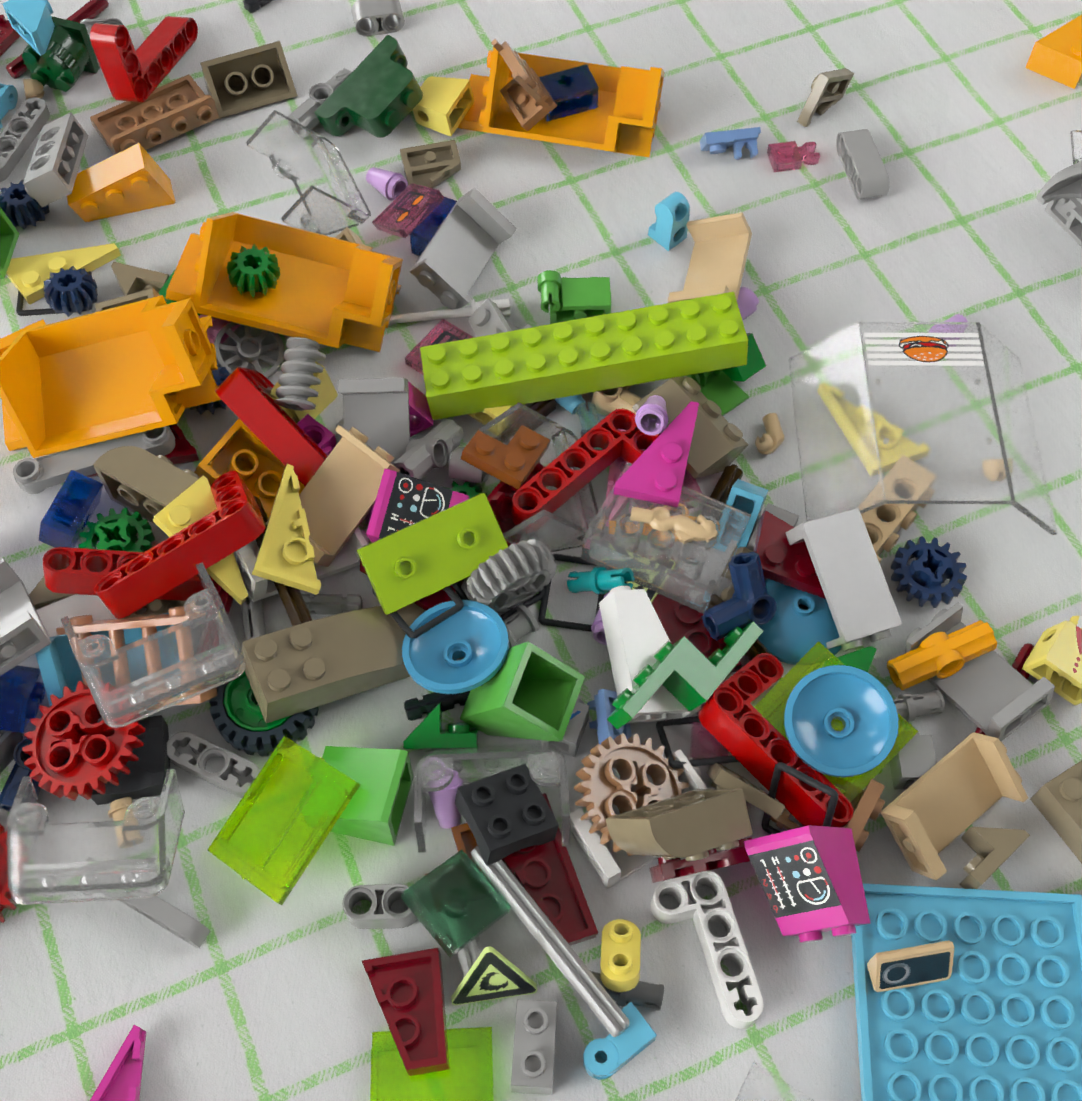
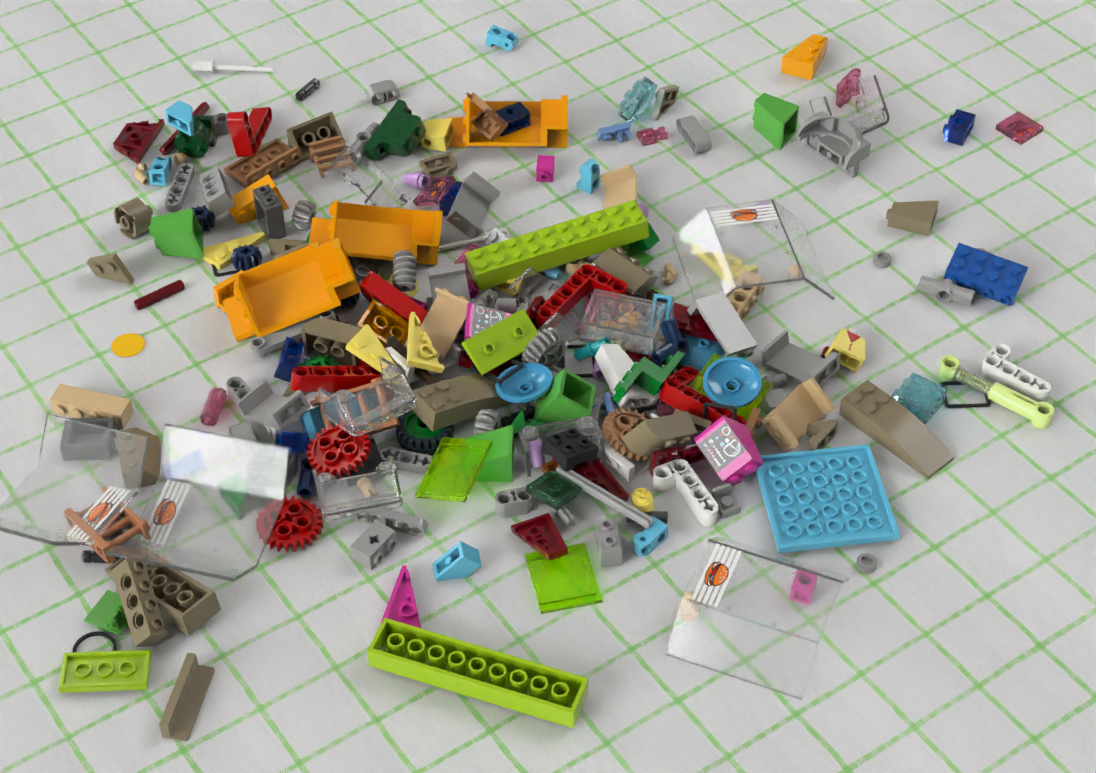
camera: 10 degrees left, 15 degrees down
(76, 968) = (373, 545): none -> light grey brick
(125, 213) = (269, 212): none -> dark grey window
(174, 560) = (389, 340): red beam -> none
(183, 219) = (303, 214): none -> light grey gear
(238, 1039) = (457, 562): none -> medium azure slope
(252, 108) = (326, 151): none -> medium nougat plate
(253, 270) = (356, 229): green gear -> none
(372, 720) = (486, 421): none -> light grey gear
(491, 979) = (579, 520): piece -> none
(507, 462) = (531, 298): dark orange plate -> none
(573, 297) = (541, 219): bright green hinge -> none
(602, 192) = (545, 168): none -> dark pink brick
(652, 416) = (603, 268): lavender cone -> none
(661, 468) = (614, 287): dark pink wing -> none
(685, 528) = (633, 312): tan animal -> none
(779, 979) = (726, 502): none -> light grey bracket
(780, 88) = (637, 99): none -> clear light blue brick
(911, 966) = (788, 479): slope -> none
(927, 573) = (767, 322): dark blue gear -> none
(941, 655) = (781, 355): light orange piece -> none
(1005, 157) = (775, 119): none -> bright green slope

